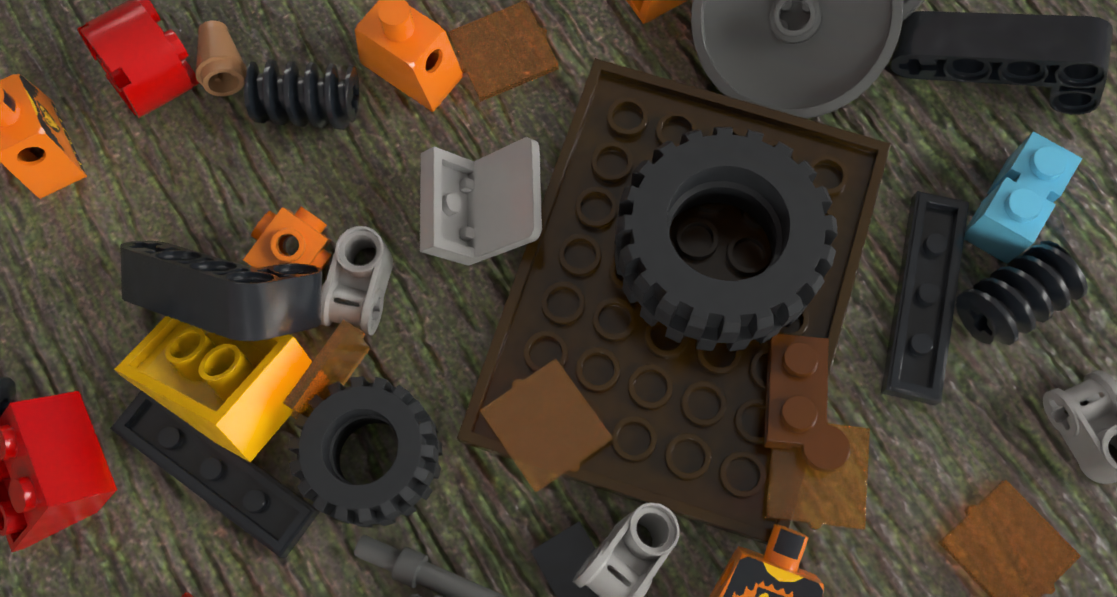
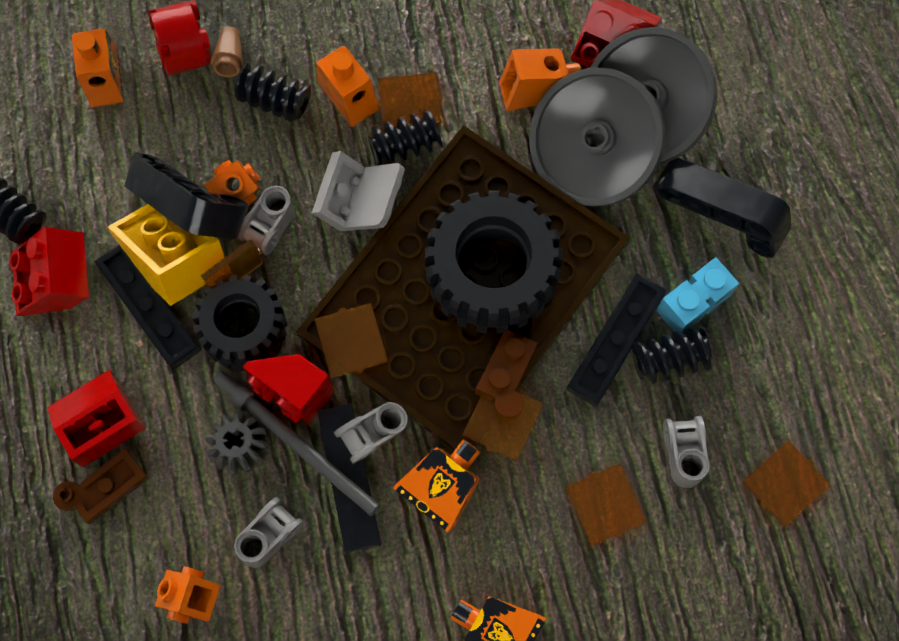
camera: 15 degrees right, 0 degrees up
(482, 523) = (291, 382): none -> red slope
(518, 98) = (404, 137): none -> black piece

